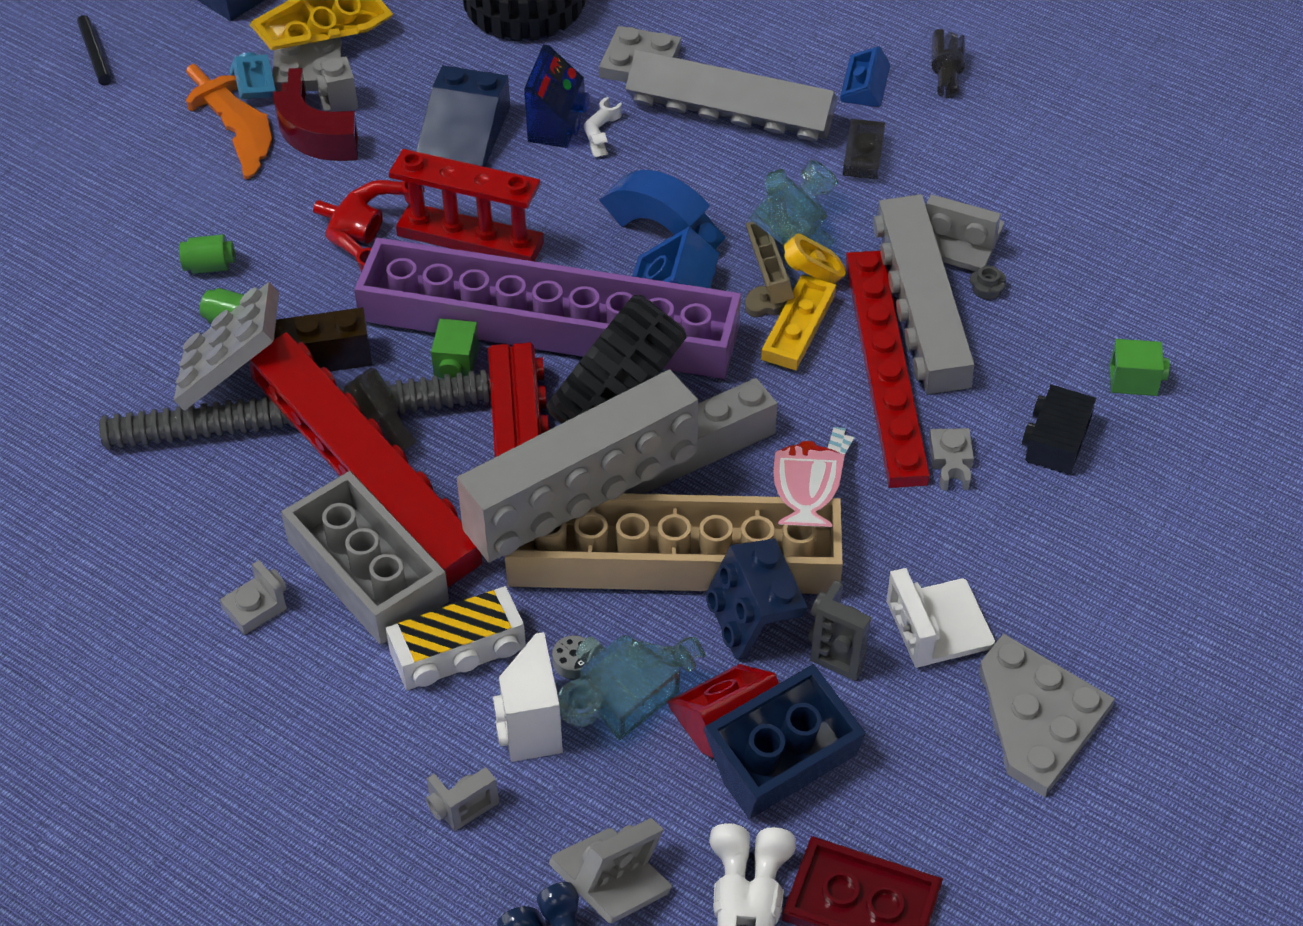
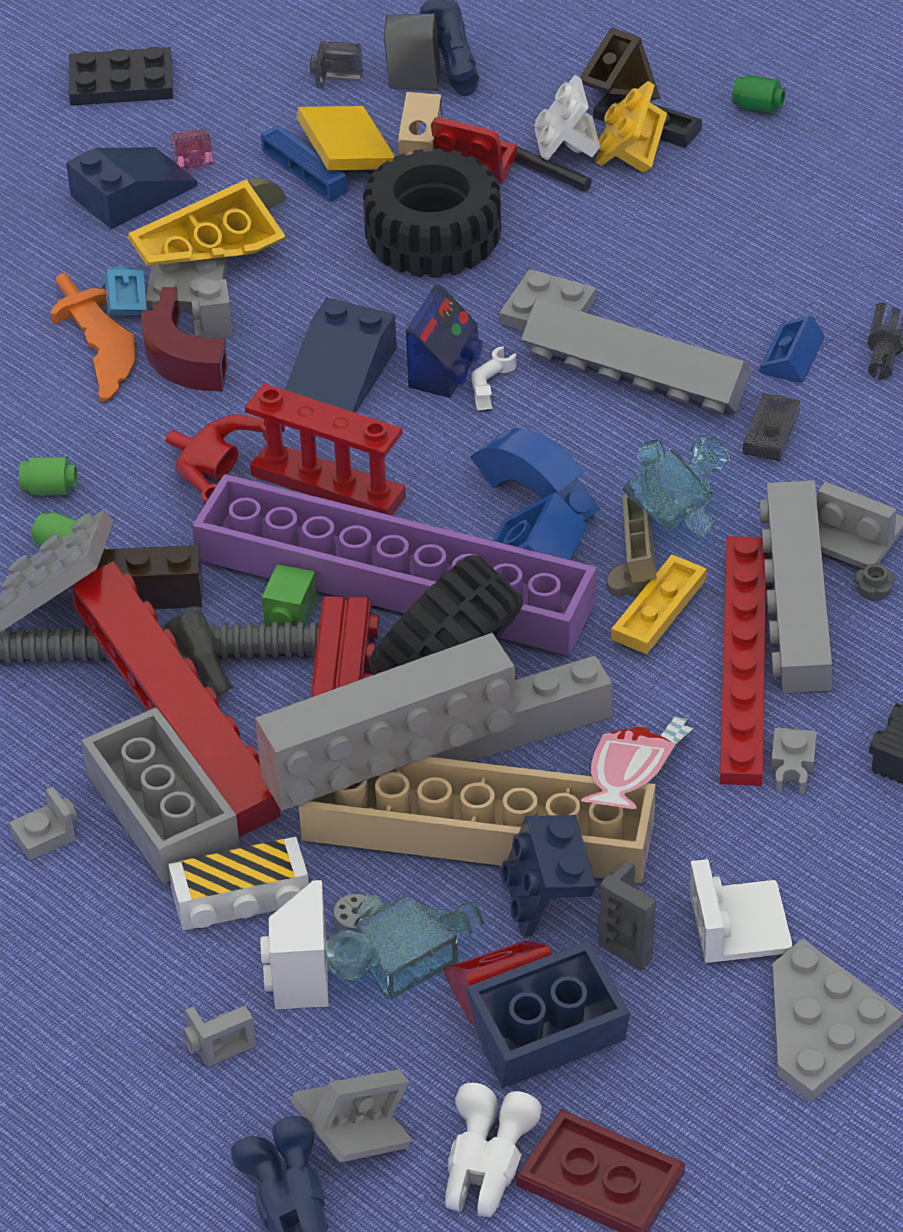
camera: 10 degrees right, 5 degrees down
(813, 259) = (686, 539): yellow plate -> none

